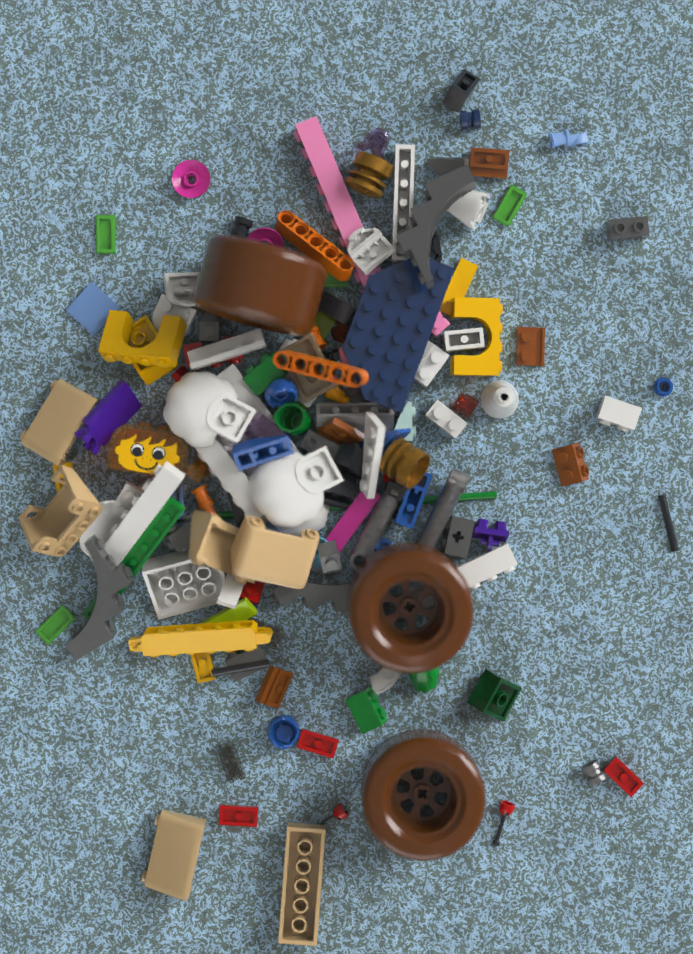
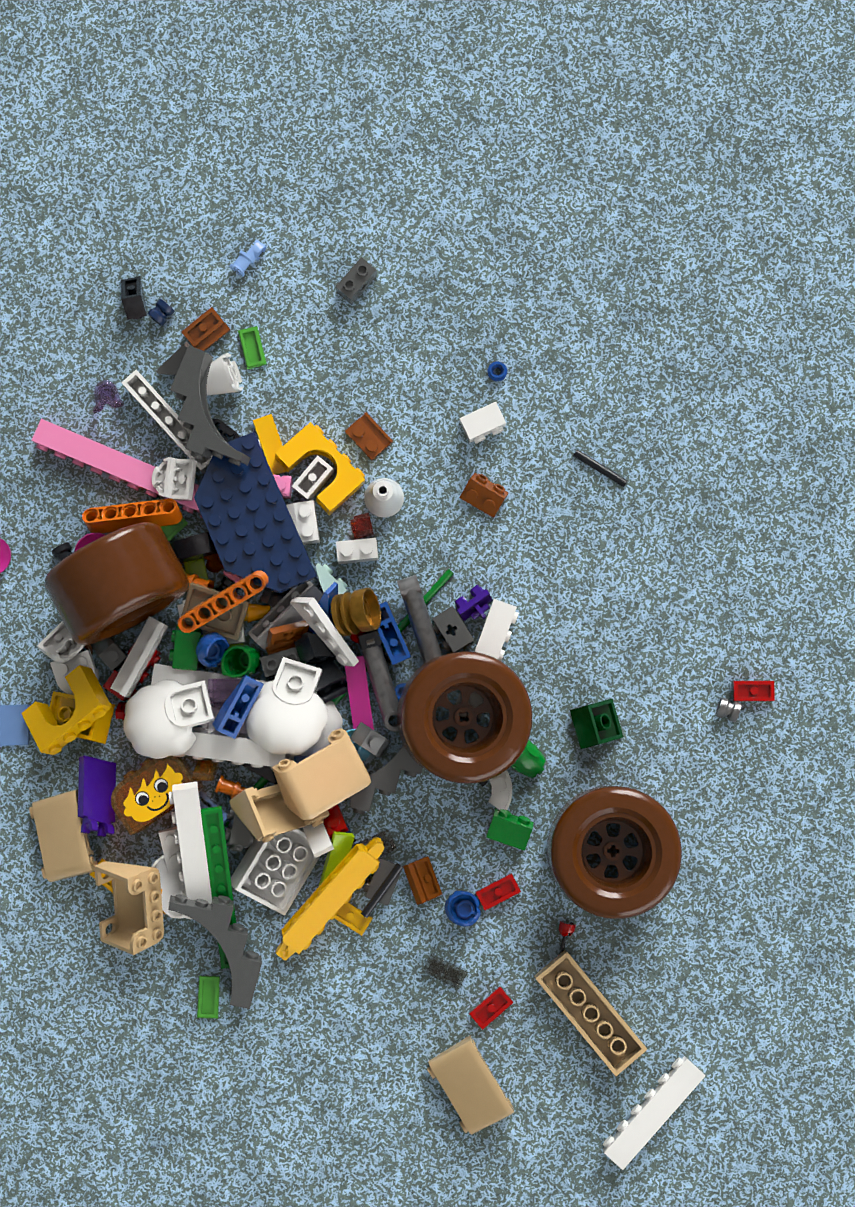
camera: 40 degrees left, 5 degrees down
(367, 179) = (123, 424): pearl gold wheel -> none
(506, 809) = (690, 802): hinge -> none

